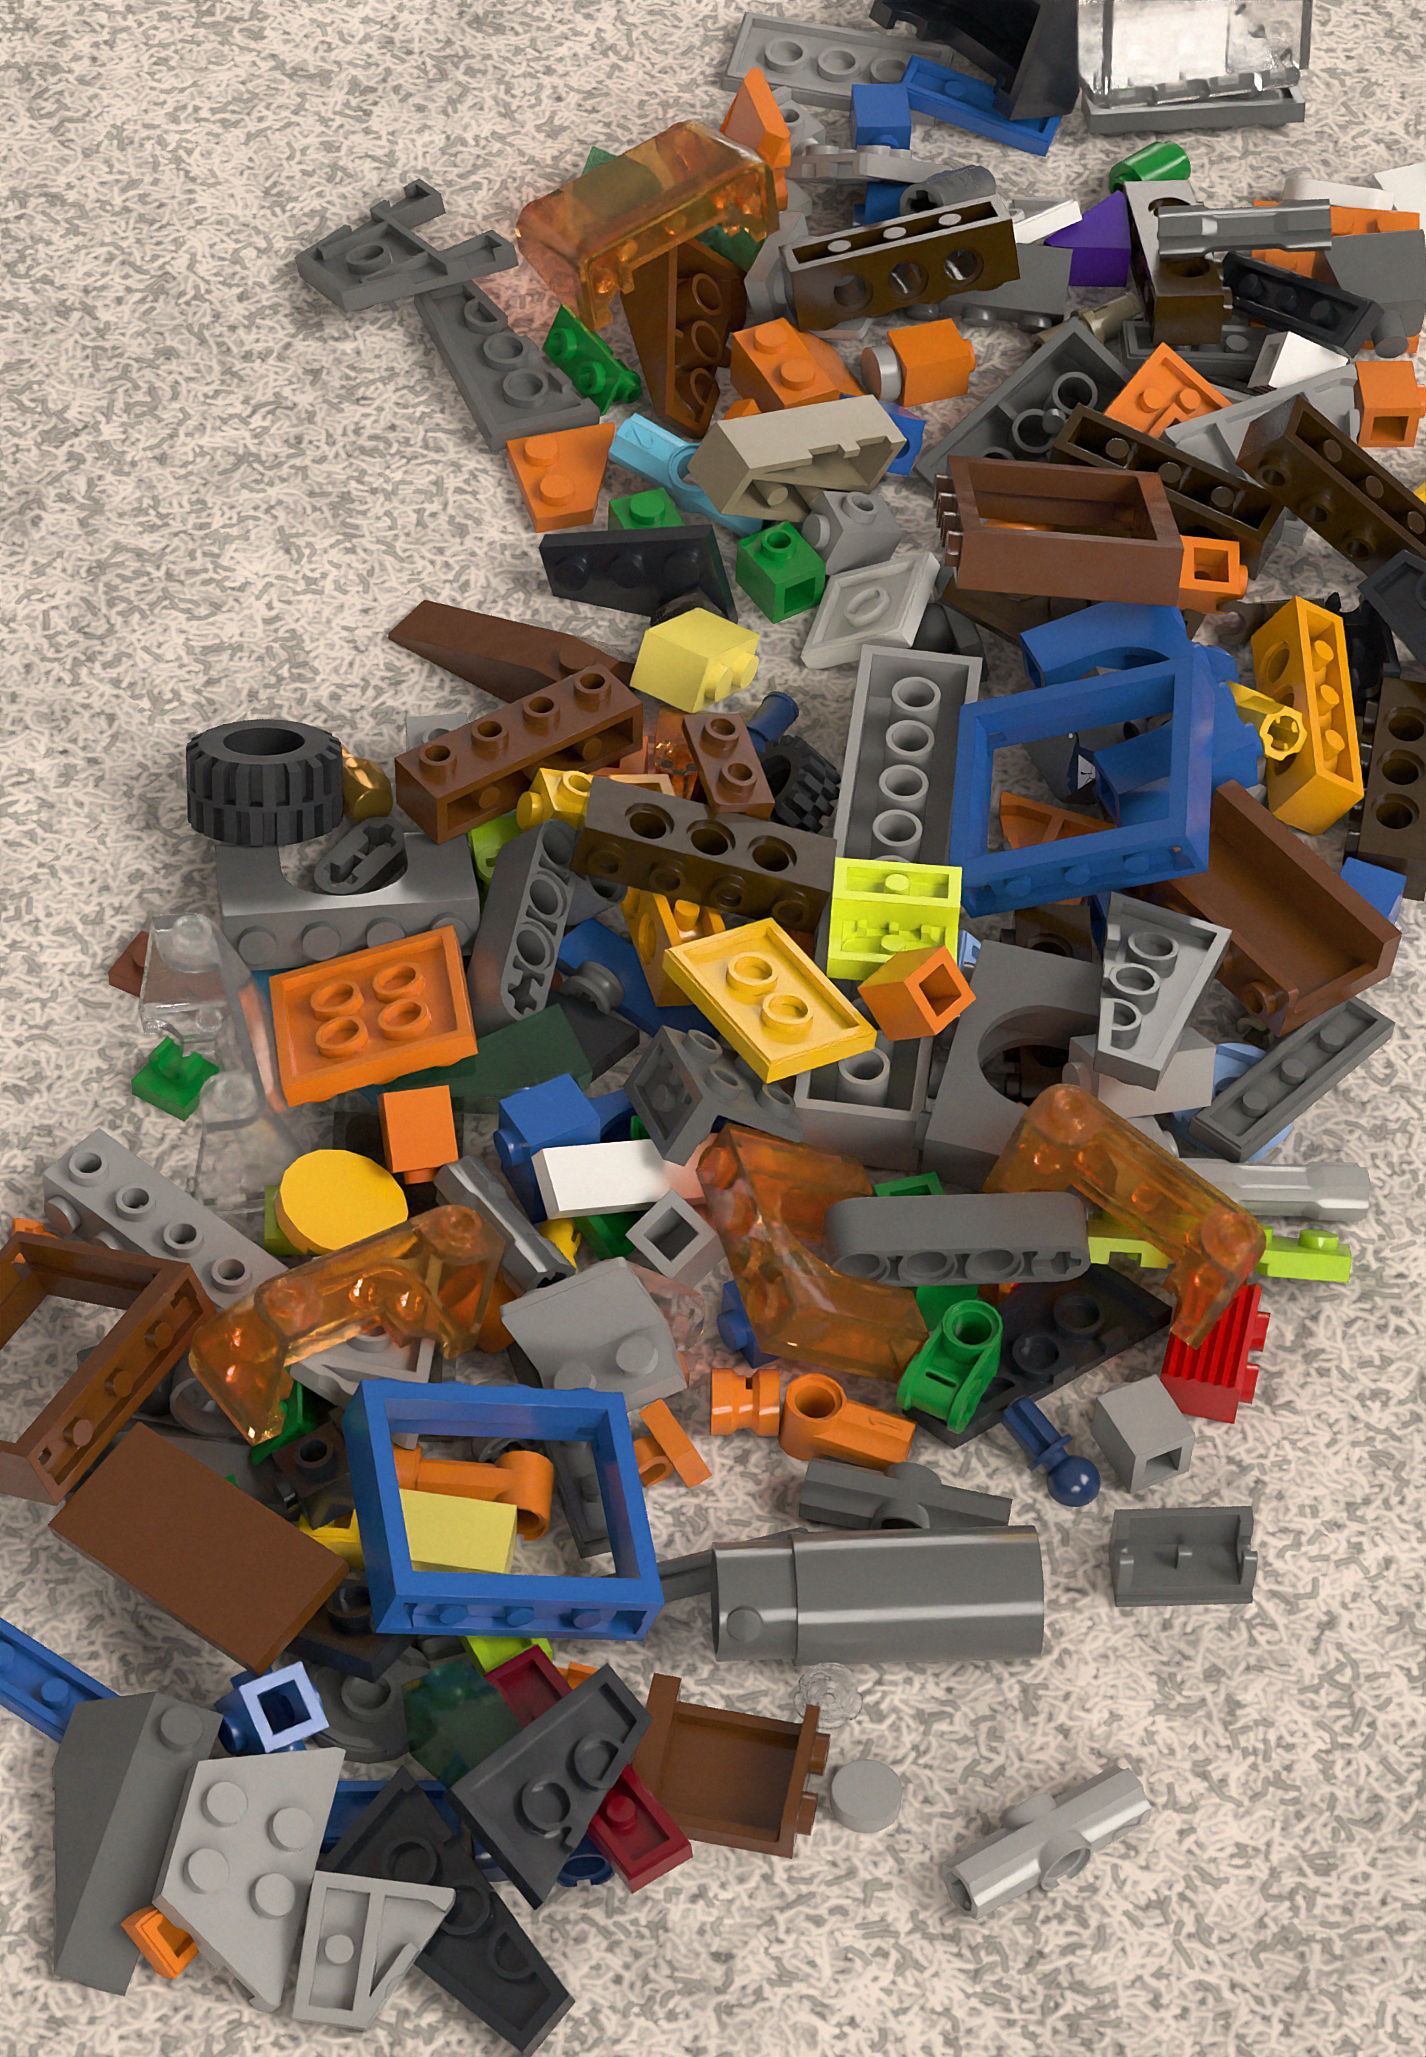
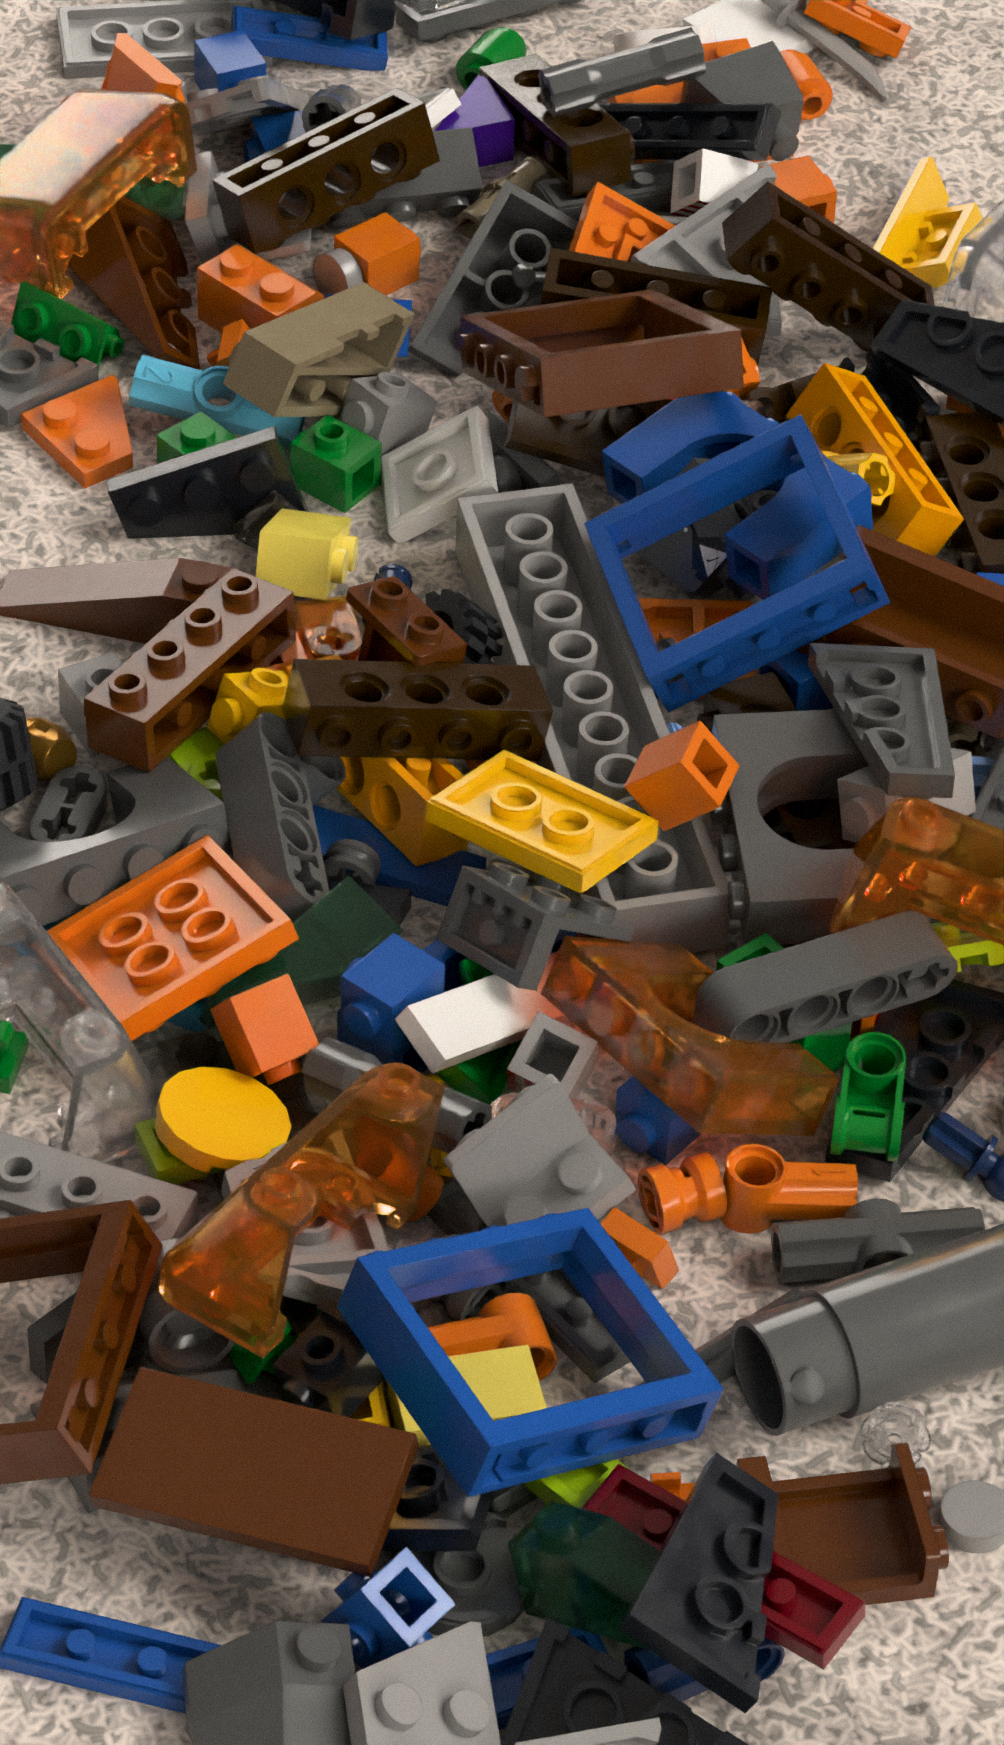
camera: 20 degrees left, 5 degrees down
(887, 911) = (609, 718): neon yellow slope -> none

